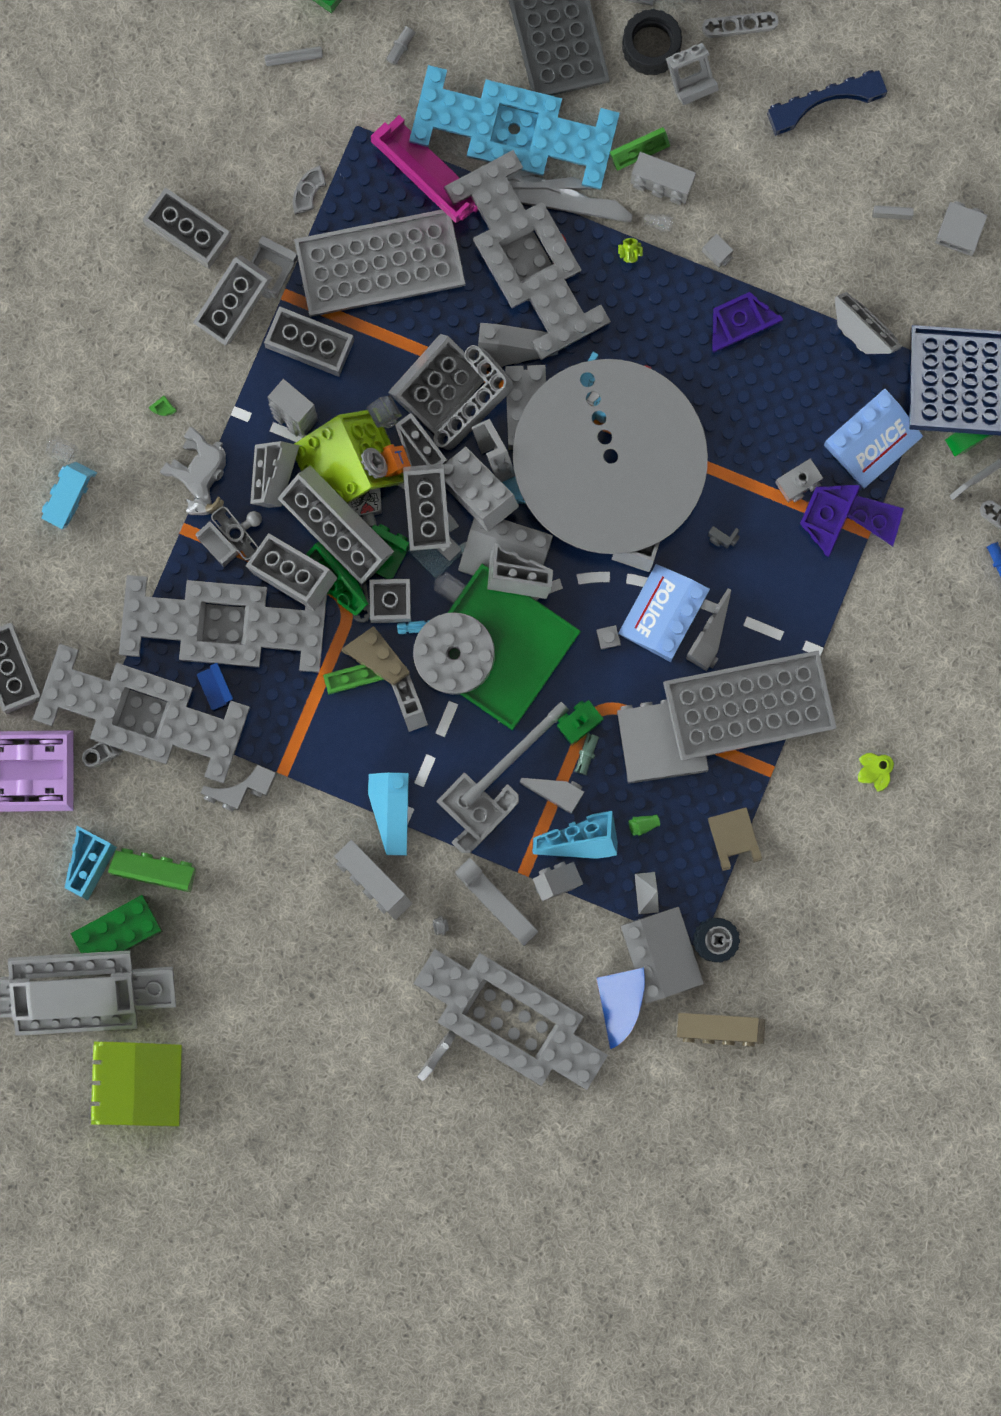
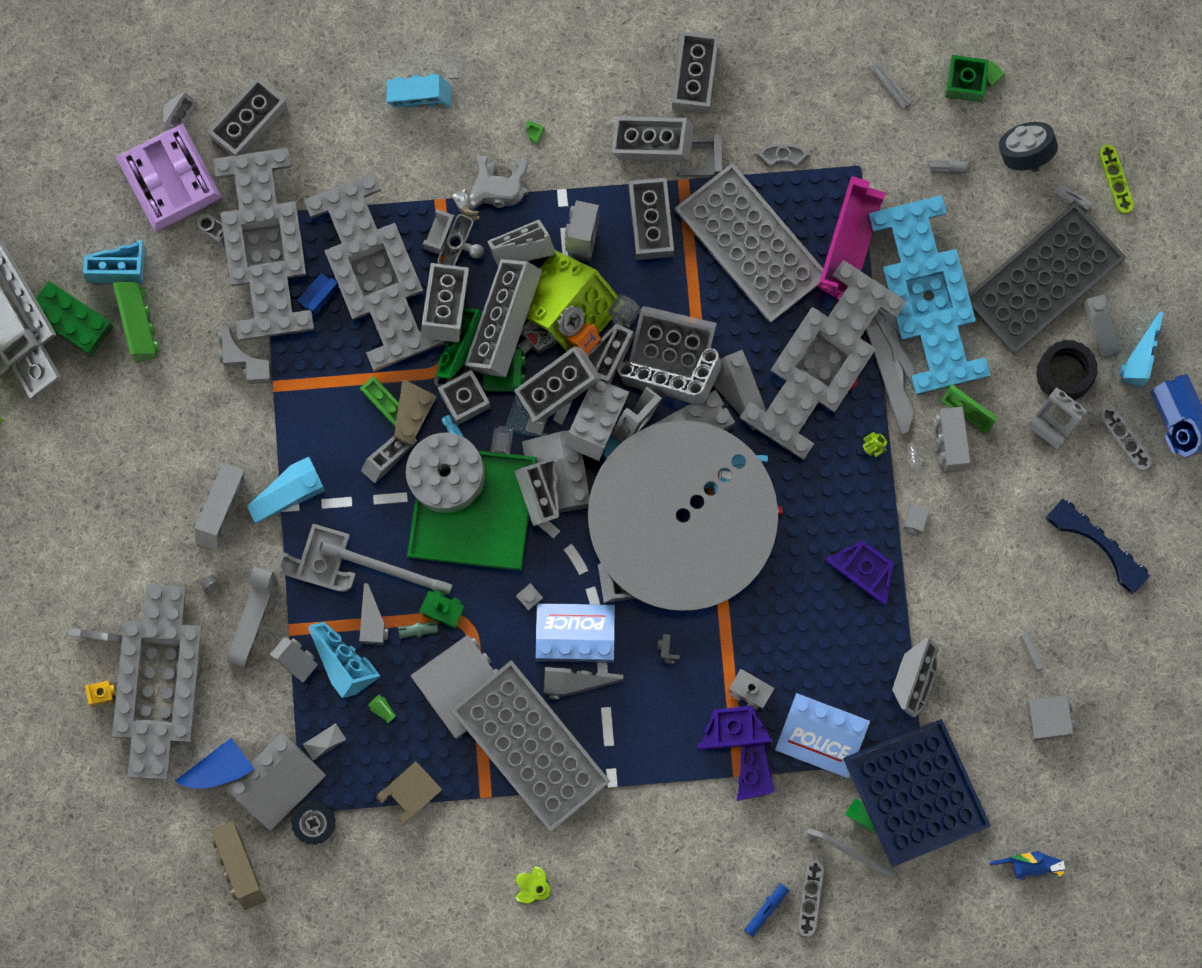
camera: 60 degrees right, 5 degrees down
(490, 1085) = (95, 699): none -> yellow brick

